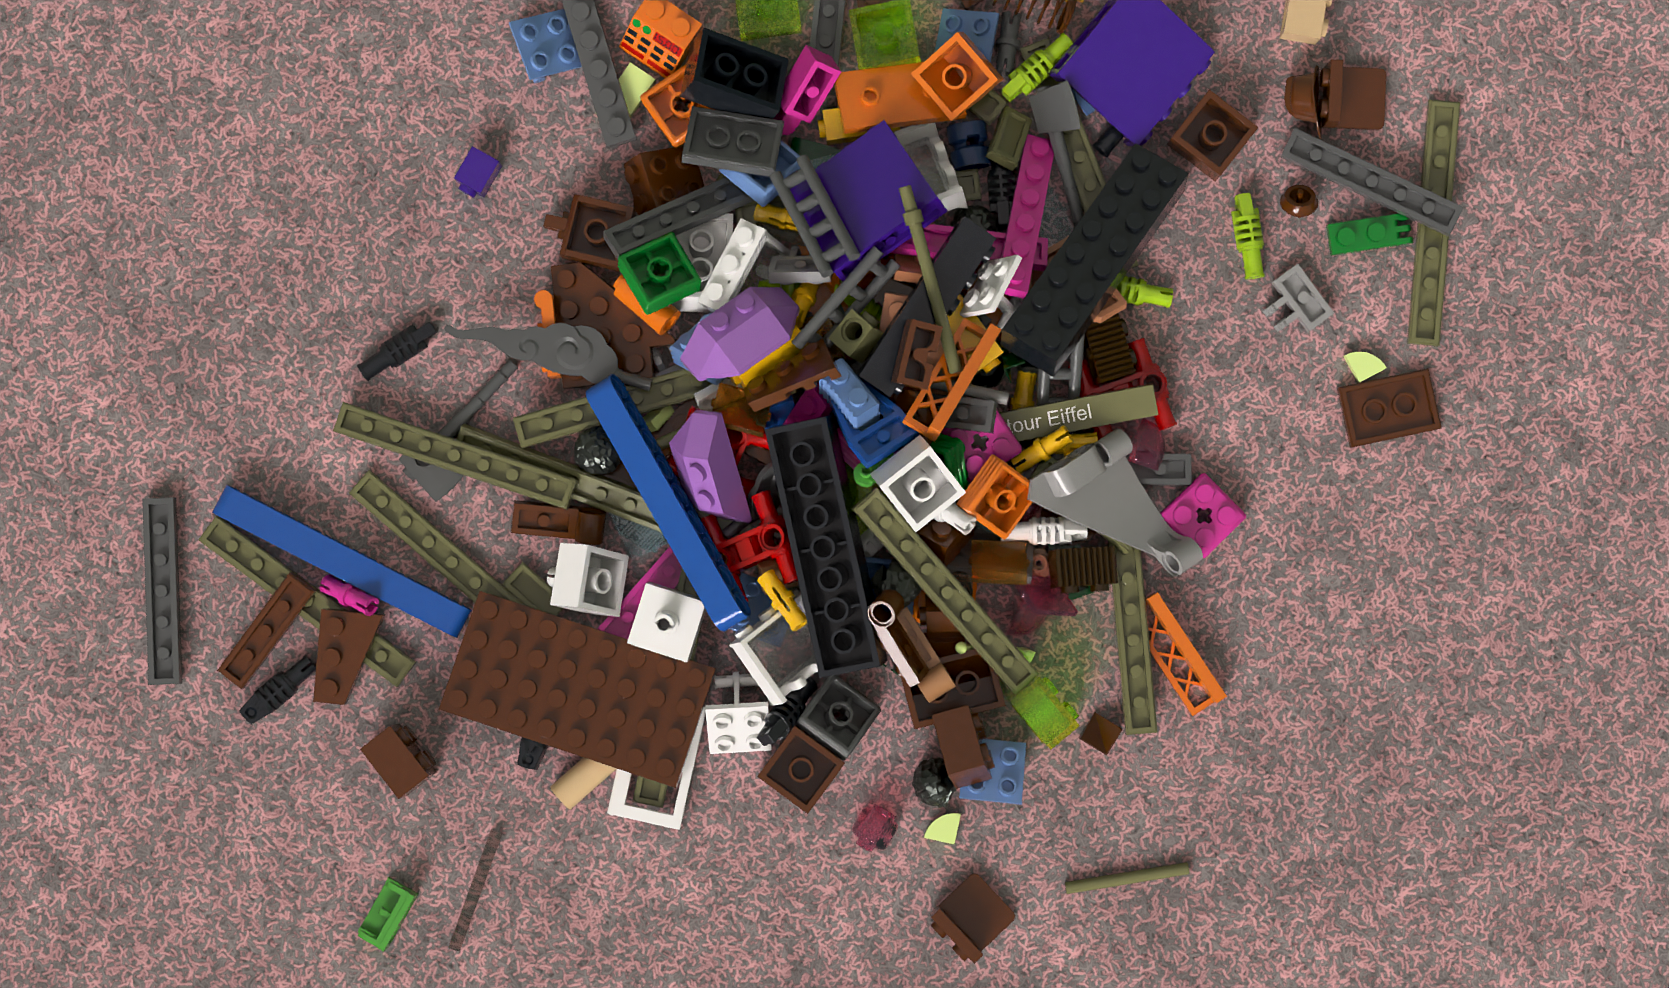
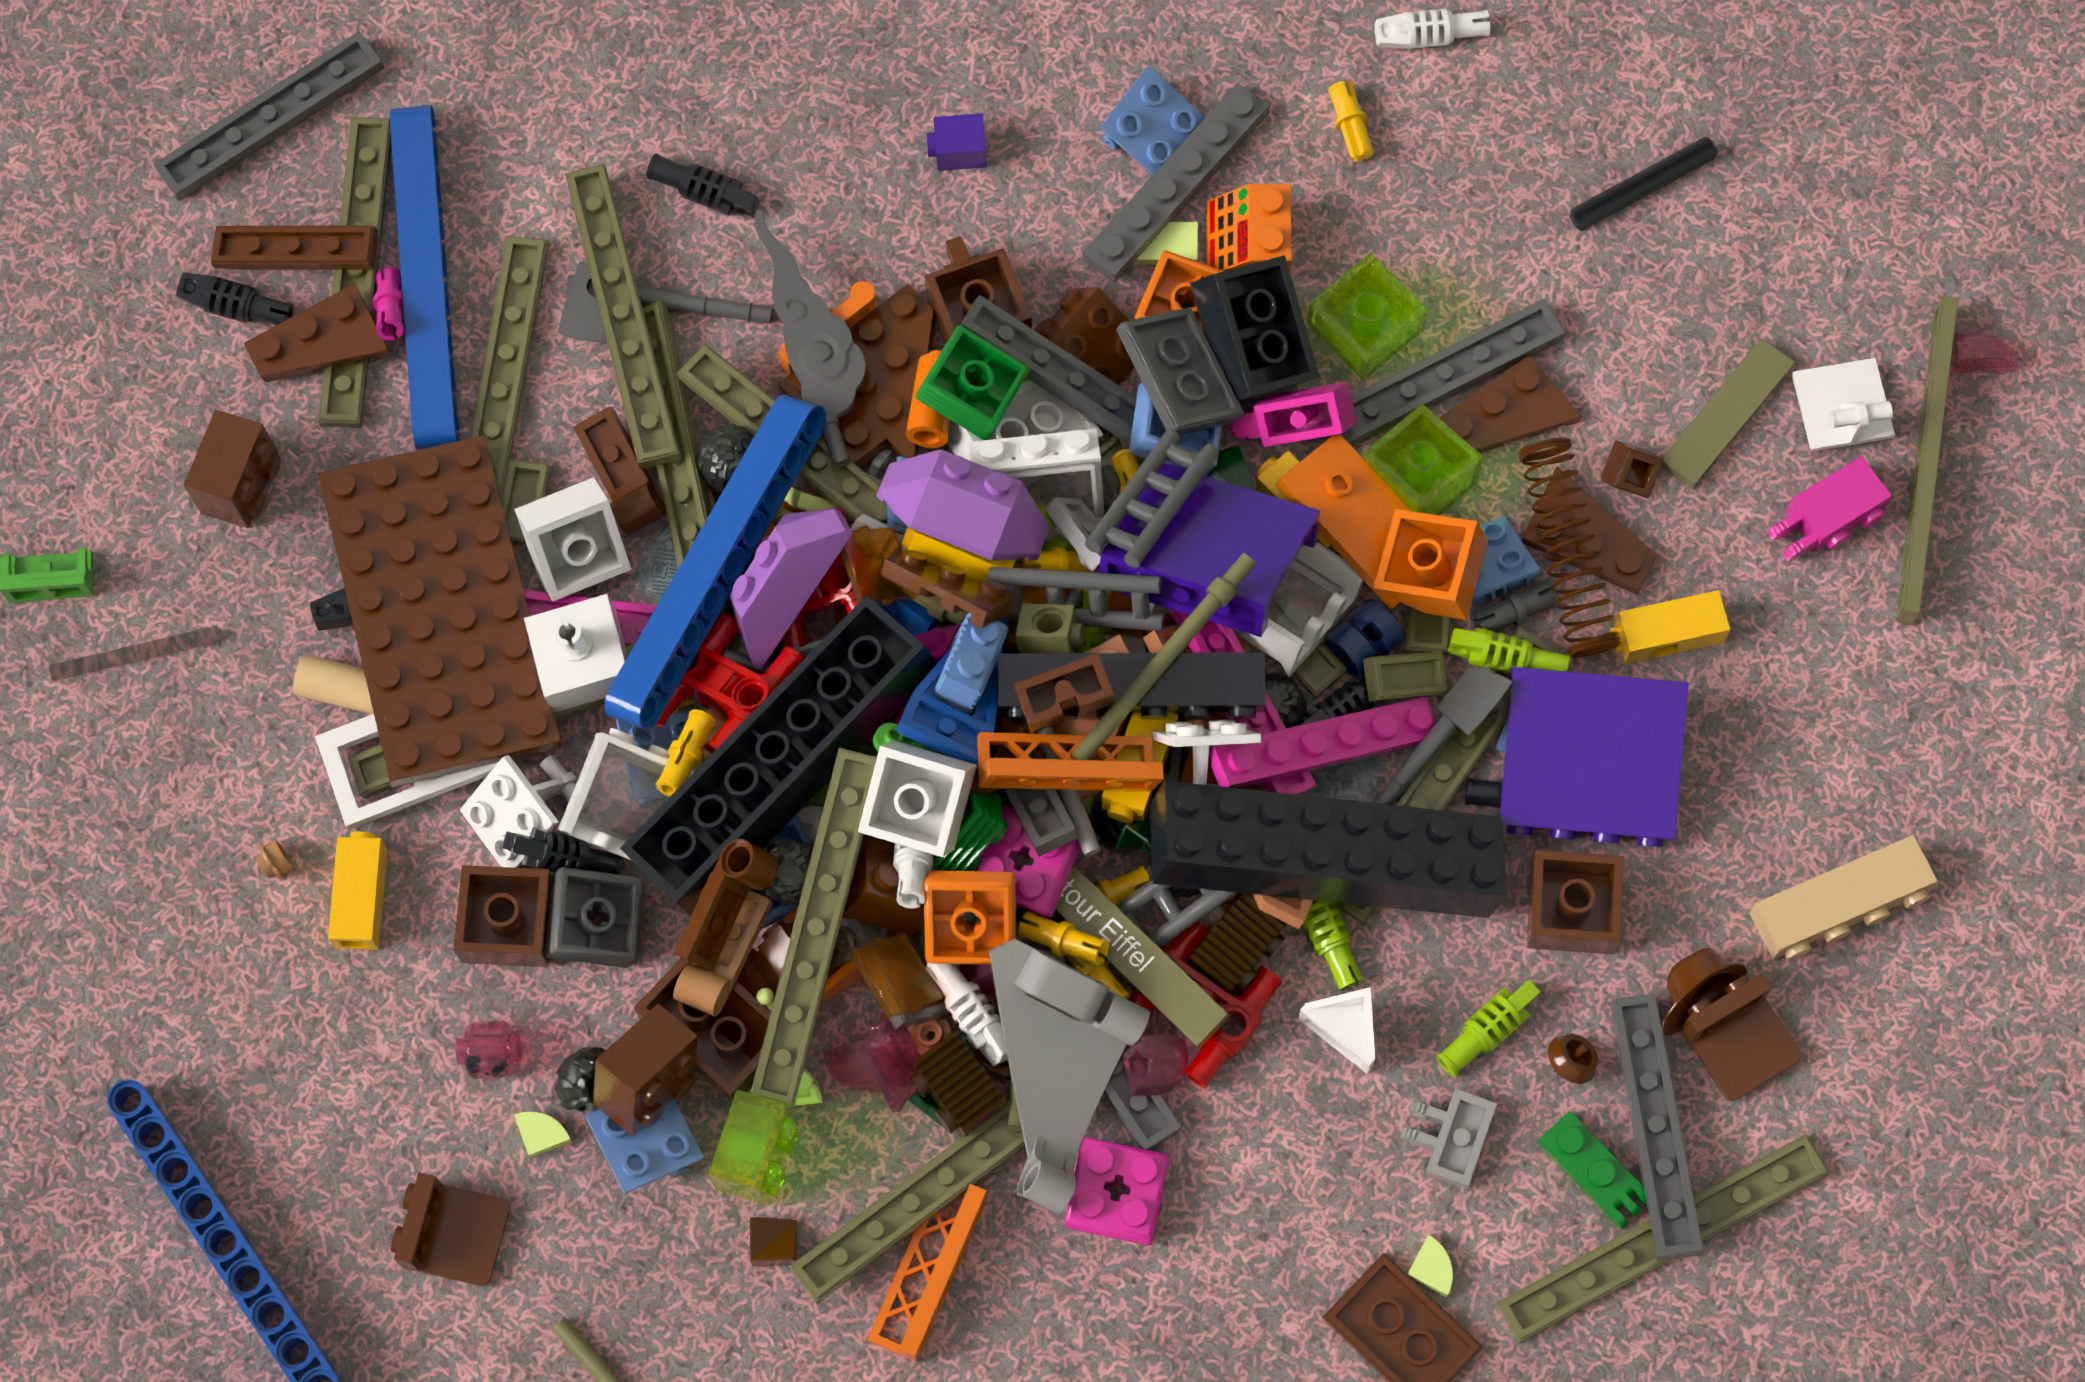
camera: 65 degrees right, 15 degrees down
(669, 884) = (274, 859): none -> medium nougat plate
(724, 846) = (358, 892): none -> yellow brick
(1196, 317) = (1345, 1024): none -> white slope

